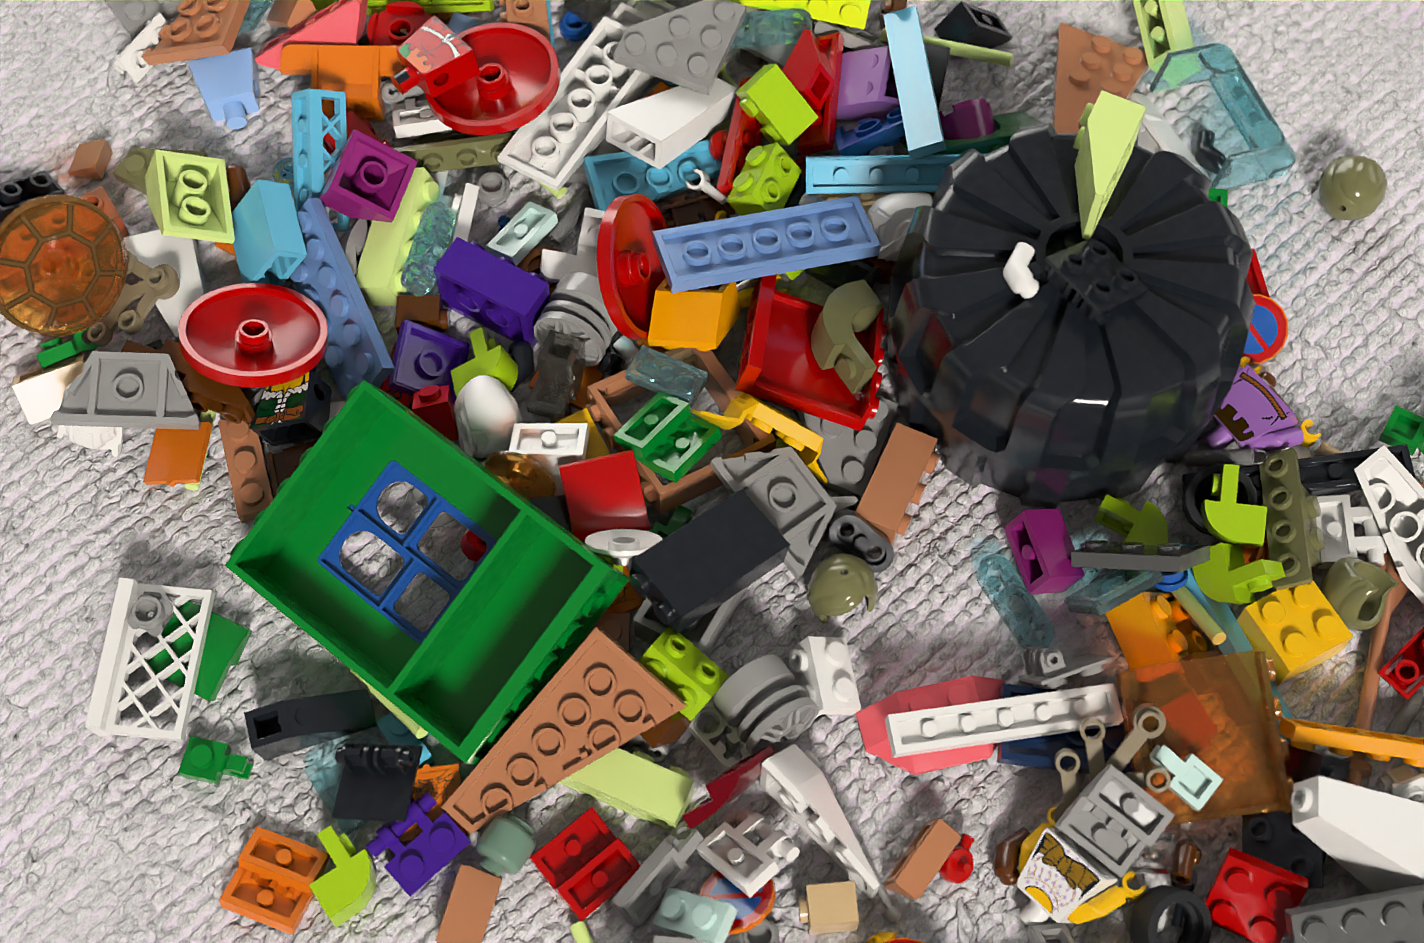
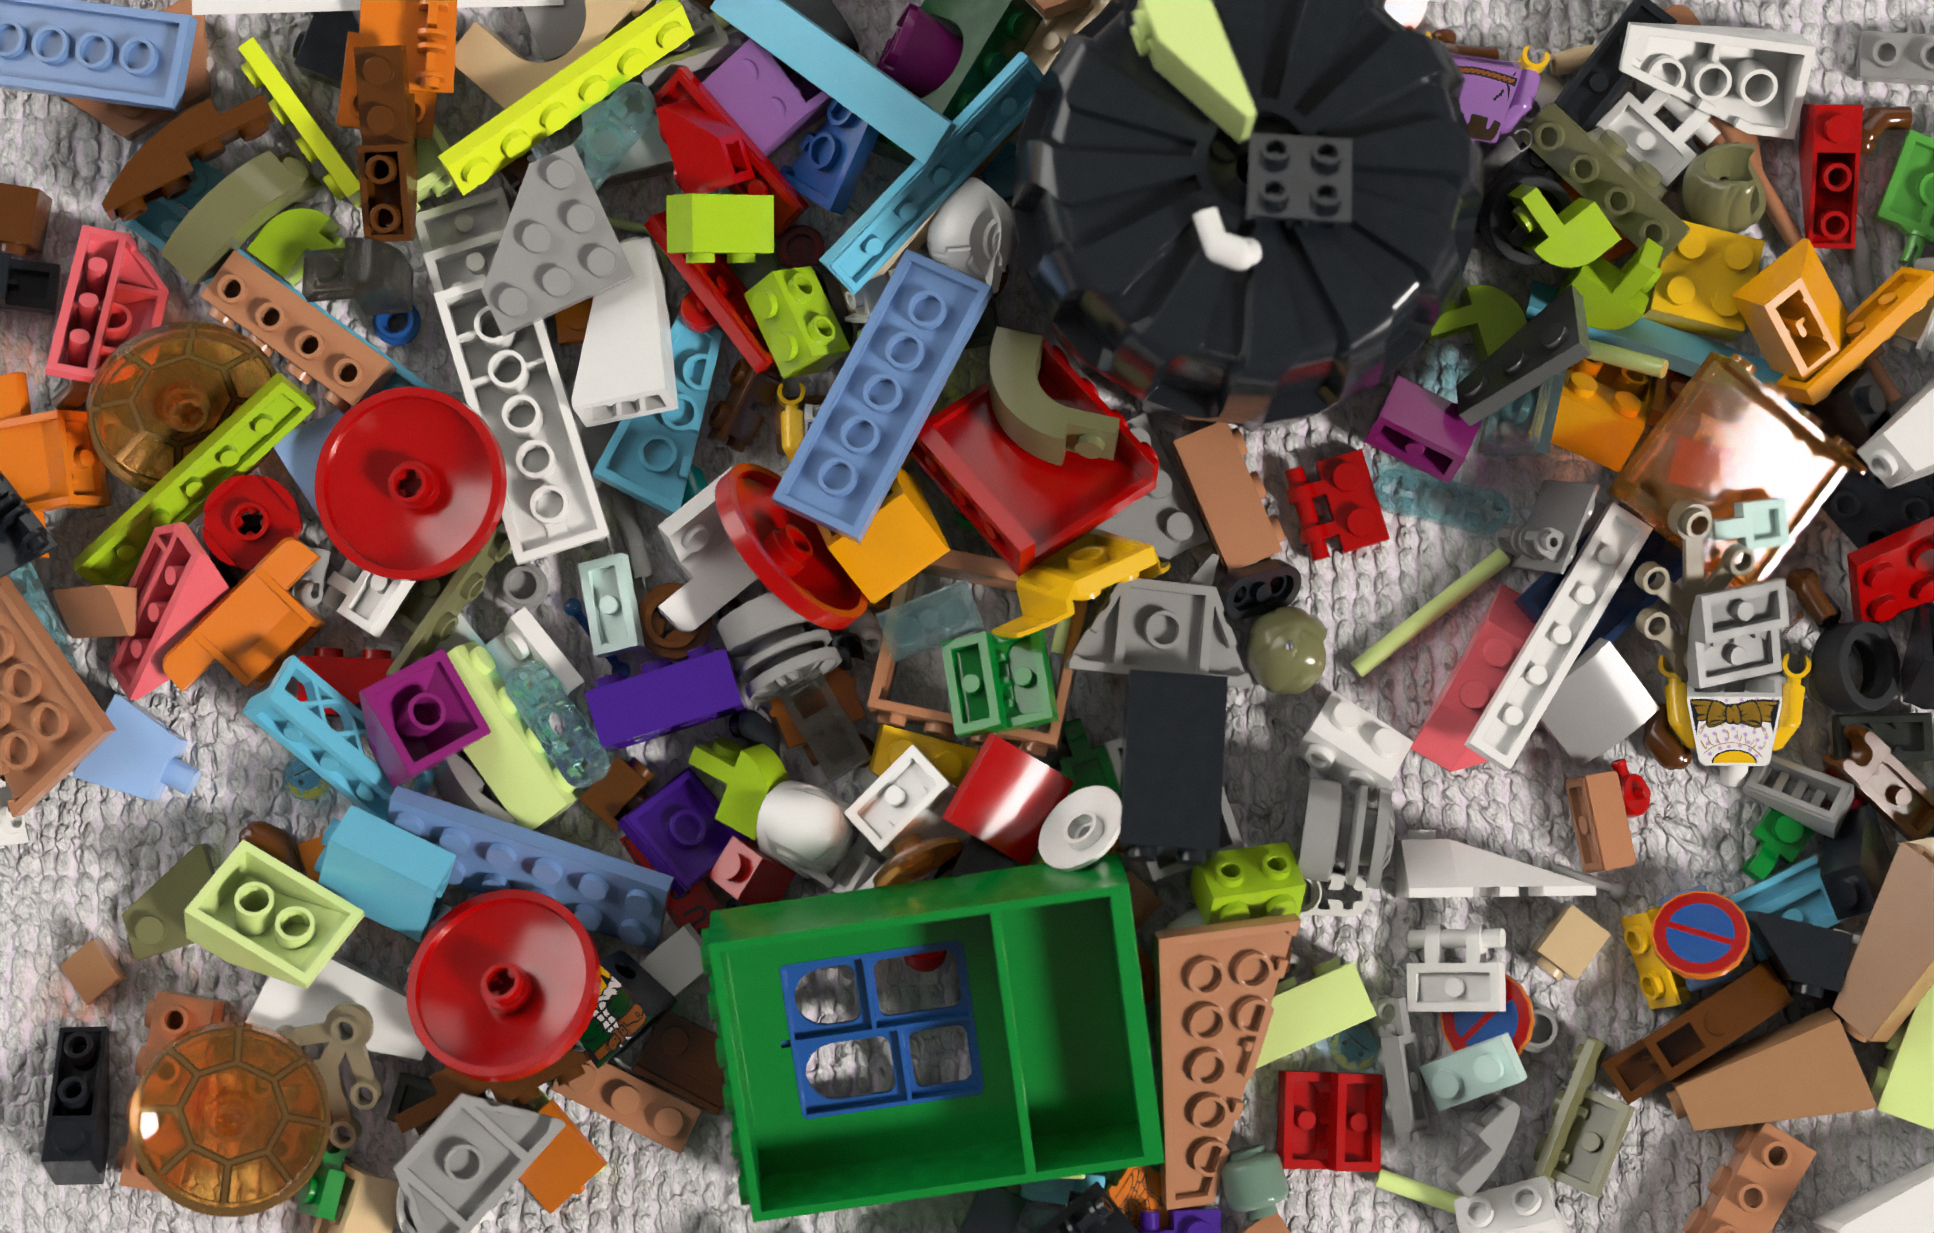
camera: 50 degrees left, 20 degrees up
(434, 60) = (341, 530): red torso -> none
(643, 838) = (1353, 1049): none -> clear light blue tile
(706, 187) = (736, 378): white hand -> none
(728, 787) = (1395, 943): dark red slope -> none
(946, 654) = (1430, 612): none -> yellowish green bar
(961, 559) = (1350, 501): none -> red plate
(987, 787) = (1597, 704): none -> light grey slope
(1333, 685) = (1794, 313): none -> light orange slope

